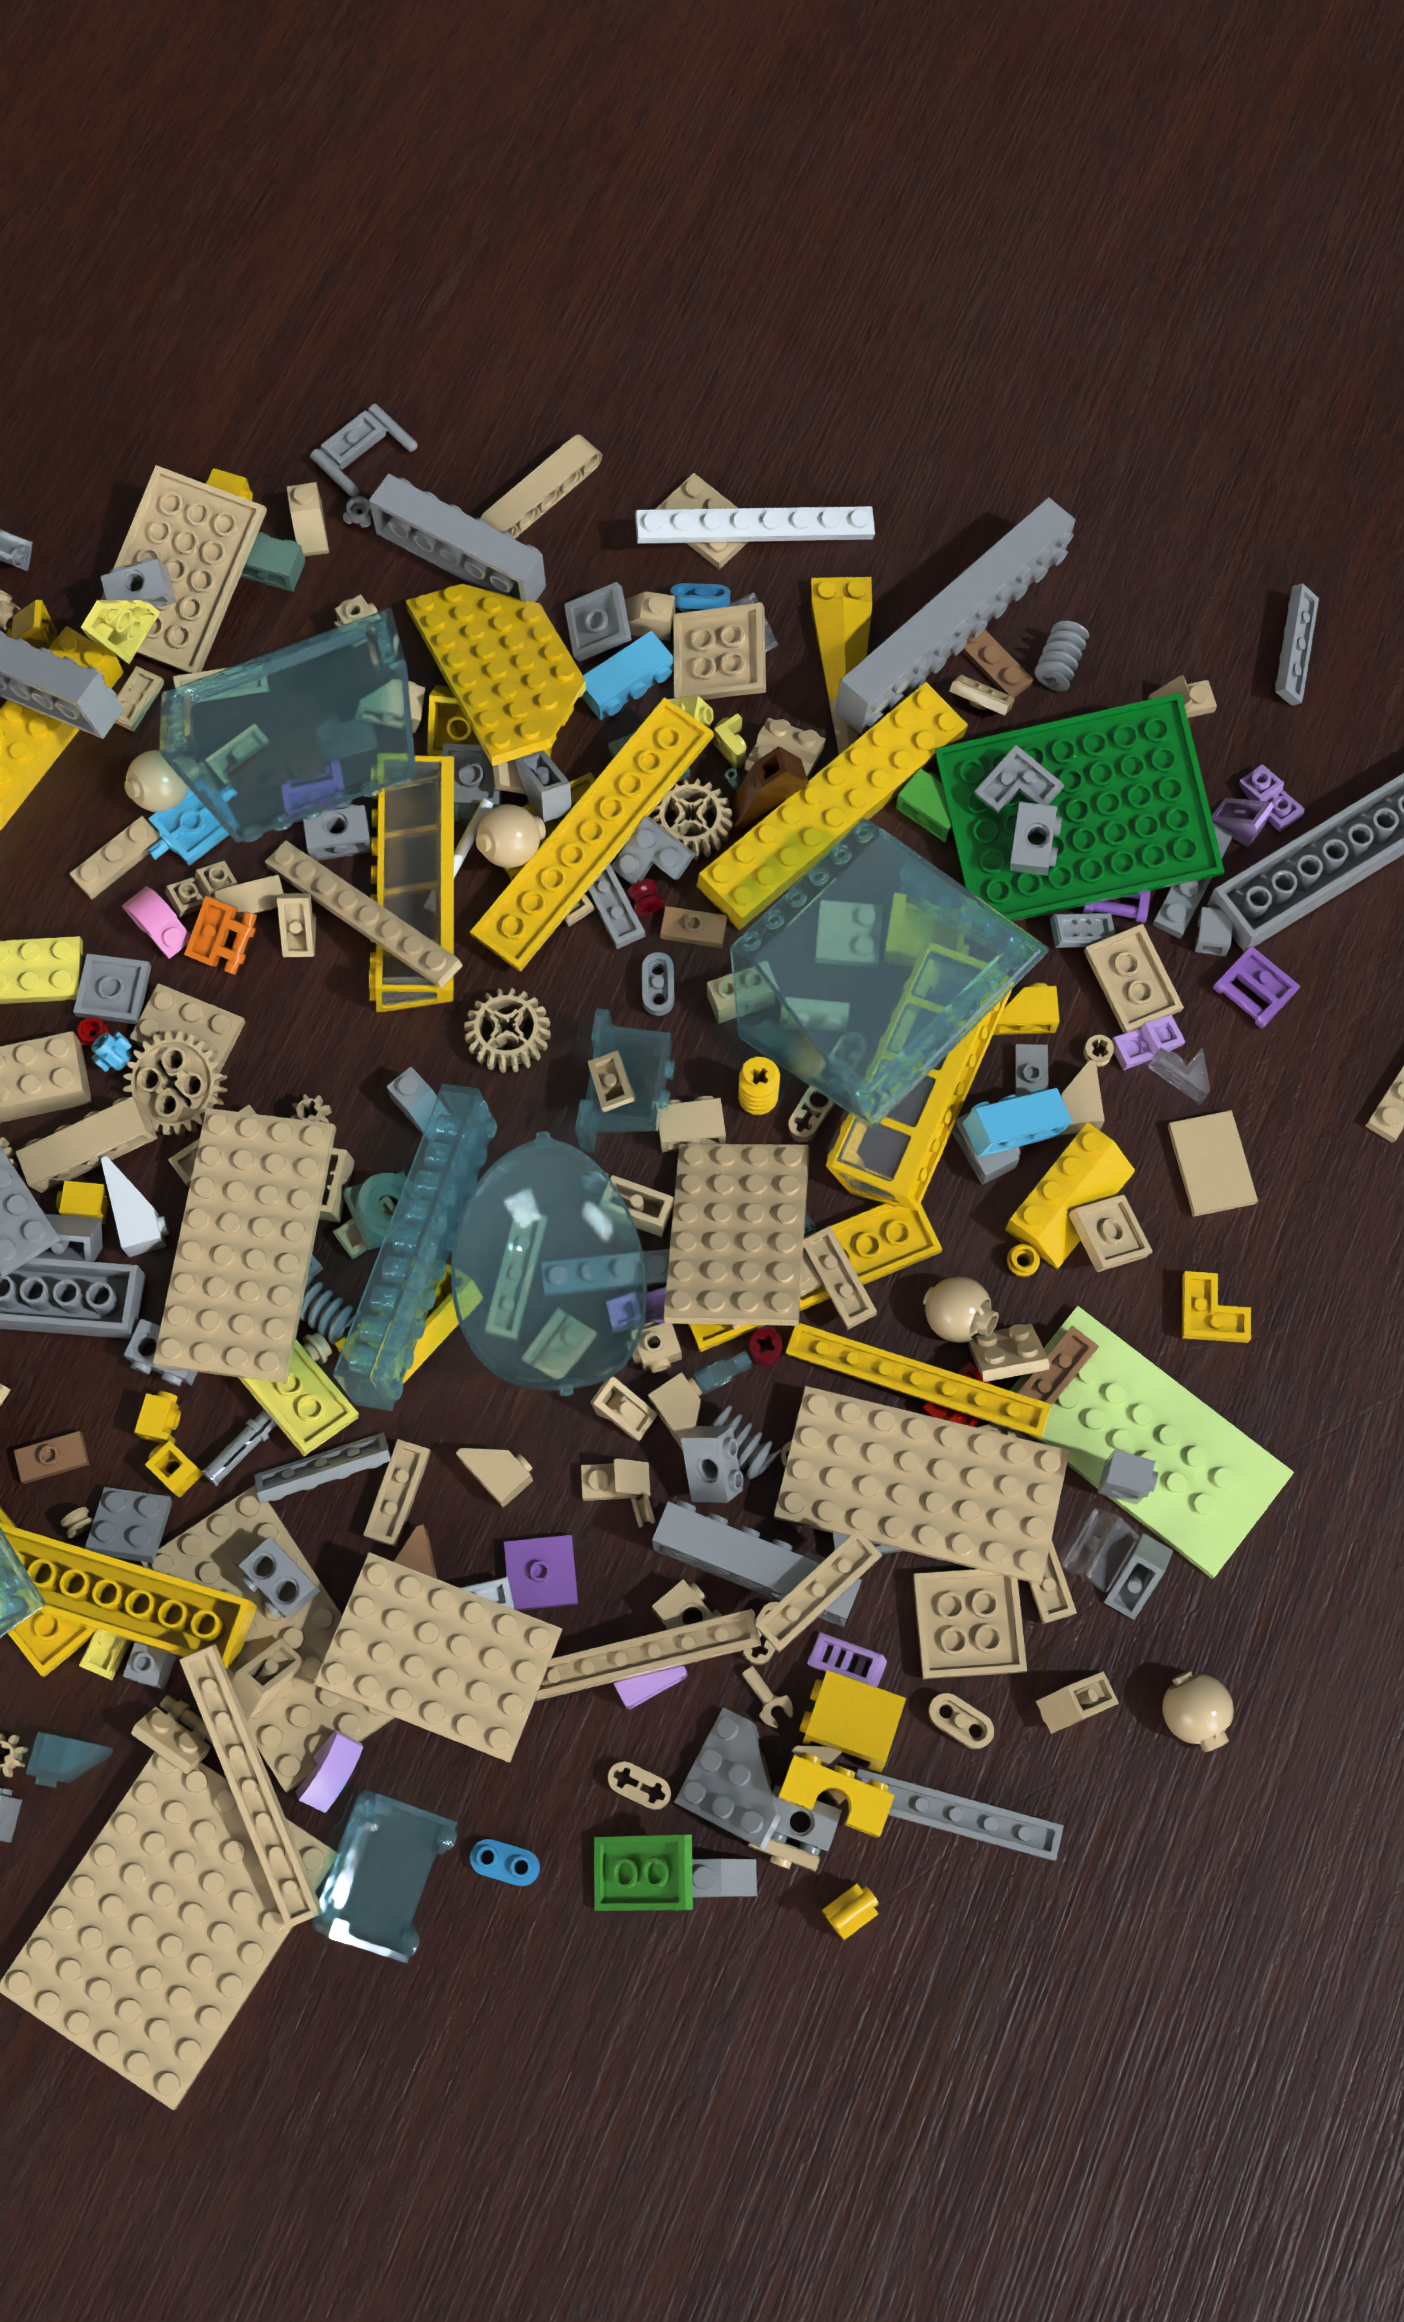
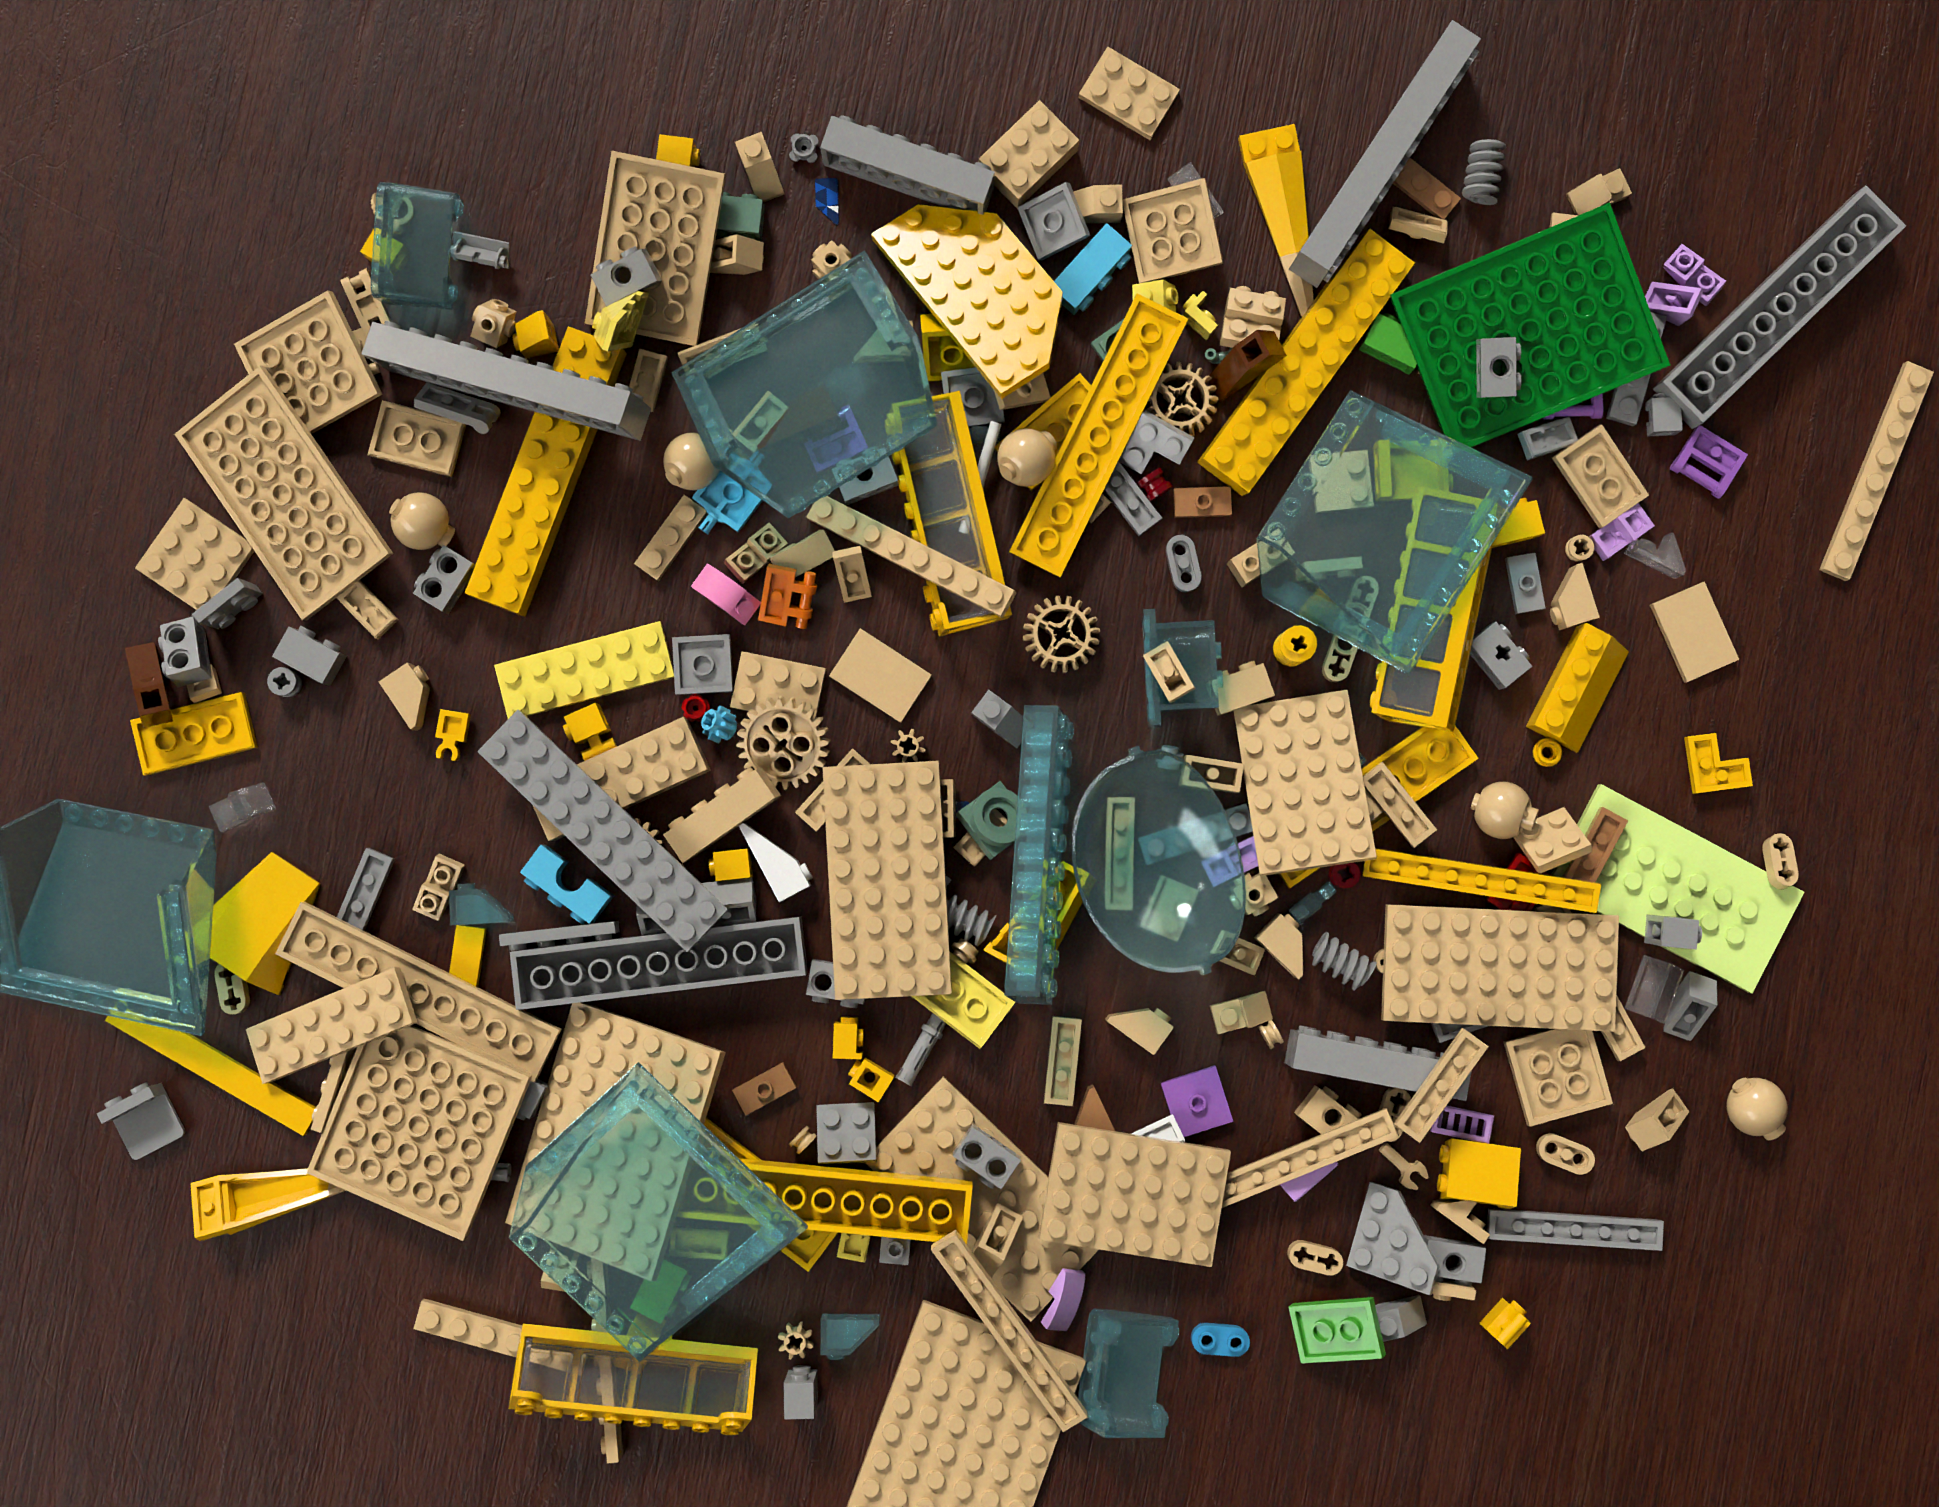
camera: 15 degrees left, 15 degrees up
(170, 1738) = (930, 1302): tan plate -> none
(260, 596) = (737, 255): none -> tan slope
(301, 1038) = (880, 675): none -> tan tile
(322, 1467) = (995, 1052): light grey plate -> none
(354, 441) = (780, 76): light grey plate -> none
(372, 563) = (827, 197): none -> dark blue sticker
(543, 487) = (969, 92): tan beam -> none
(544, 785) = (1048, 403): light grey slope -> none
(589, 554) = (1029, 153): none -> tan brick
(700, 596) = (1141, 175): dark azure plate -> none
(706, 1481) = (1324, 988): light grey brick -> none
(754, 524) = (1177, 92): white plate -> none
(867, 1802) = (1456, 1236): yellow arch -> none
(1016, 1121) = (1526, 635): medium azure brick -> none
(1018, 774) = (1474, 308): light grey plate -> none
(1110, 1233) = (1619, 716): tan plate -> none
(1264, 1430) = (1780, 861): none -> tan beam
(1297, 644) = (1695, 116): light grey plate -> none

